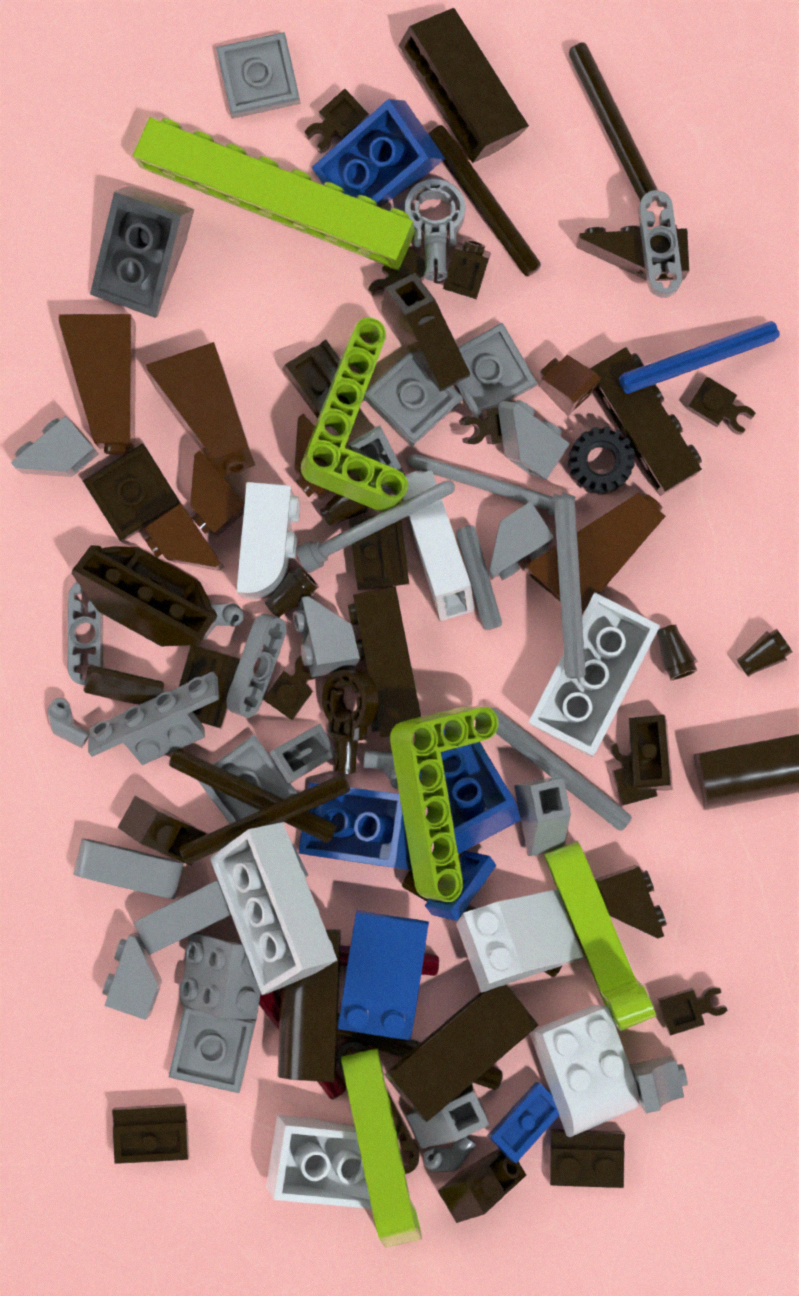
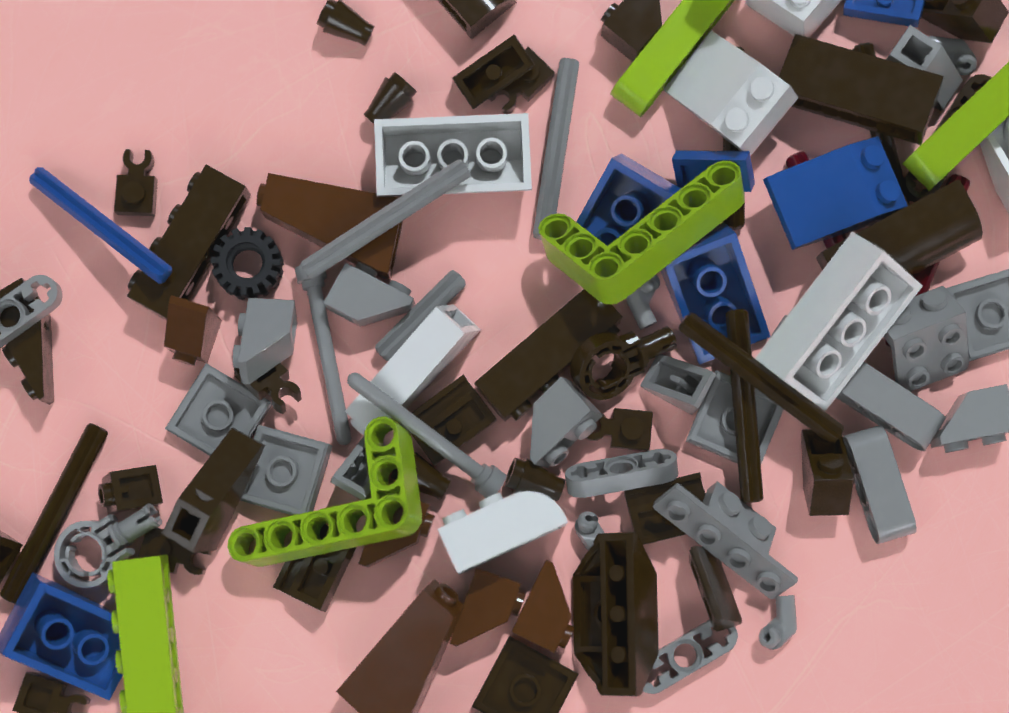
camera: 120 degrees left, 5 degrees down
(543, 814) = (602, 135): light grey slope -> none

